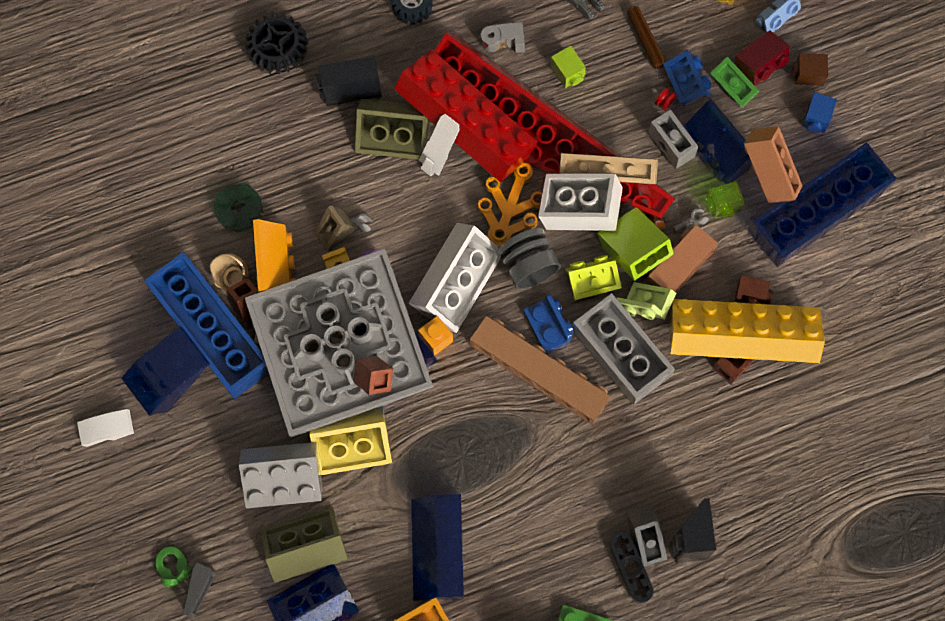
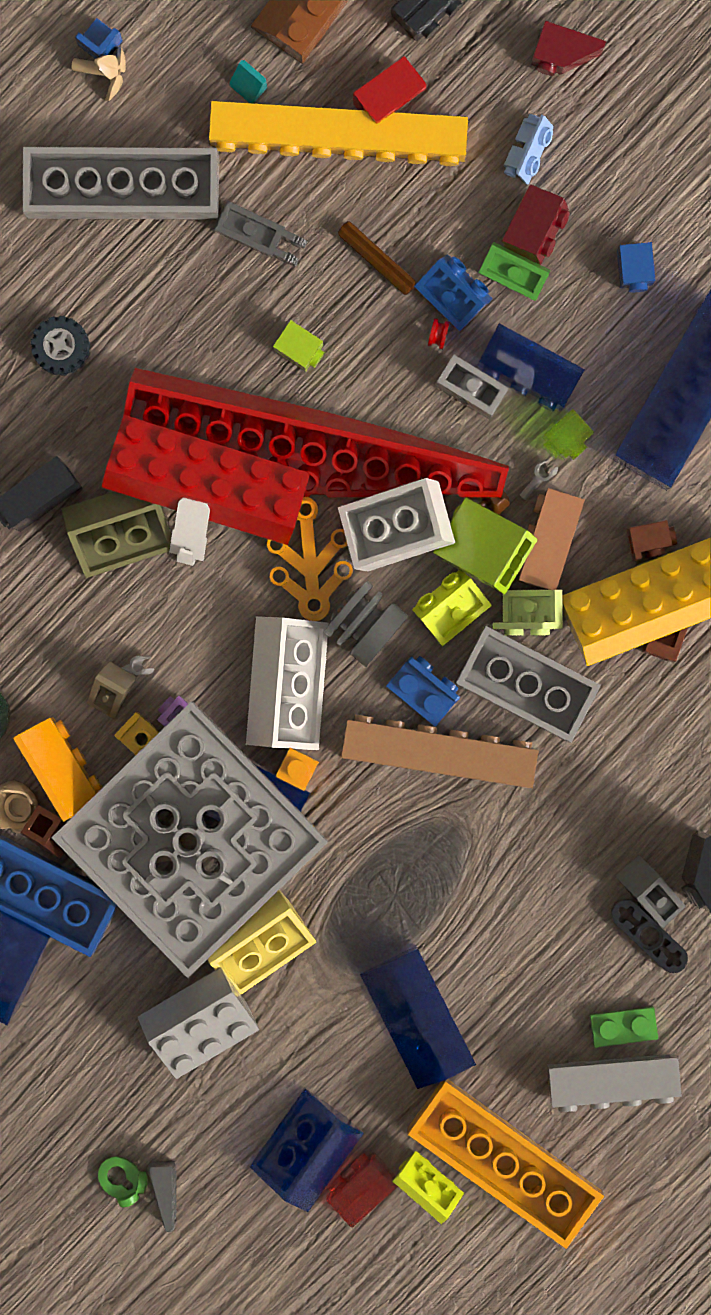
camera: 30 degrees left, 15 degrees up
(303, 545) = (261, 1086): olive slope -> none
(373, 375) = (253, 866): copper panel -> none
(503, 36) = (197, 340): light grey leg -> none
(626, 168) = (413, 465): tan plate -> none
(773, 164) = (612, 378): nougat brick -> none
(810, 69) = (601, 211): reddish brown brick -> none

